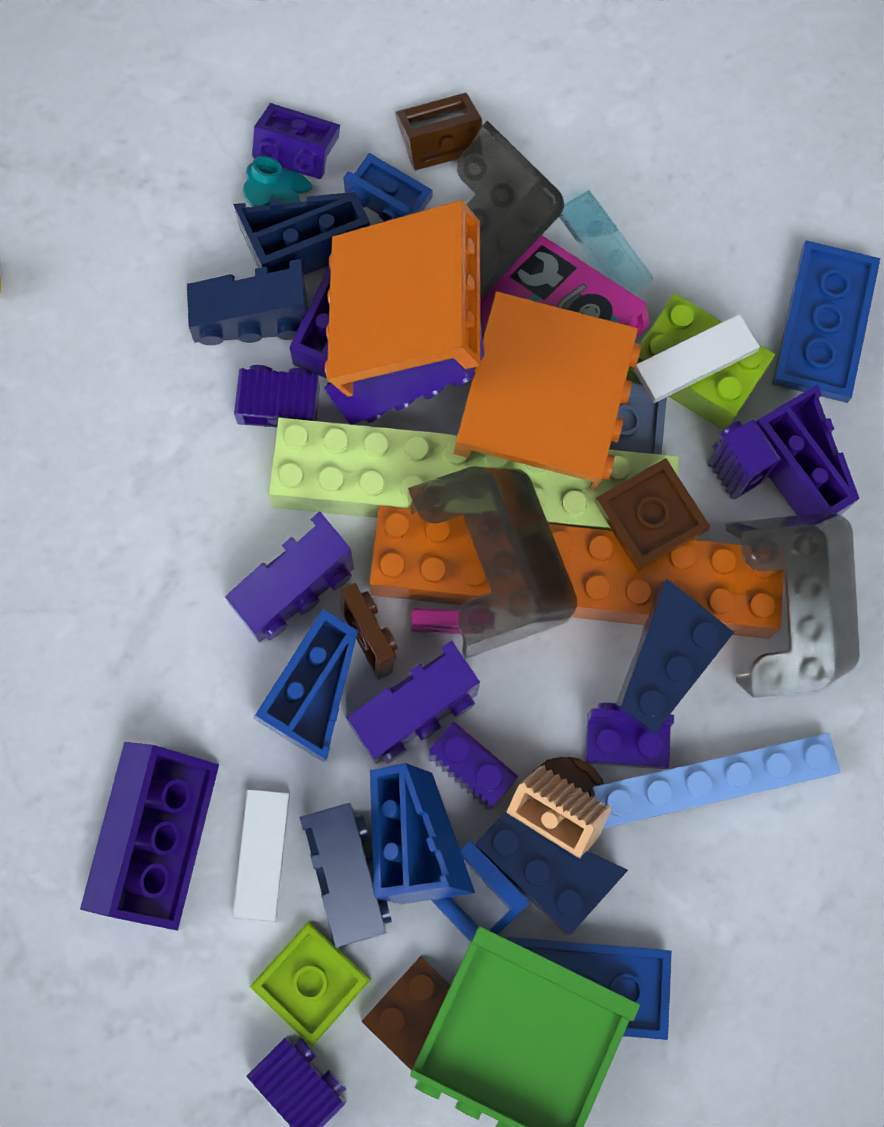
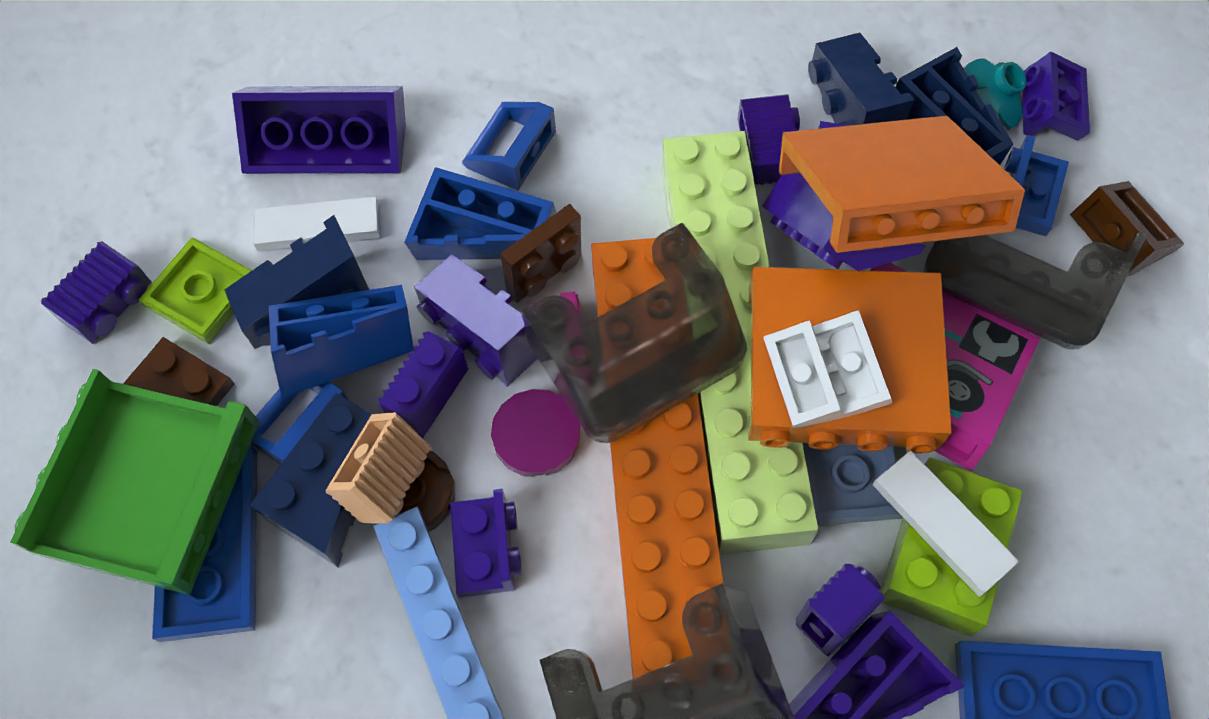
camera: 85 degrees right, 10 degrees down
(227, 626) = (525, 150): none -> blue tile
(292, 580) = (600, 190): dark purple wedge -> none
(532, 676) = (535, 433): none -> magenta tile
(569, 406) = (827, 370): none -> white slope
(604, 243) = (1060, 422): clear light blue tile -> none
(652, 514) = (732, 499): reddish brown plate -> none
(670, 657) = (566, 545): dark blue wedge -> none

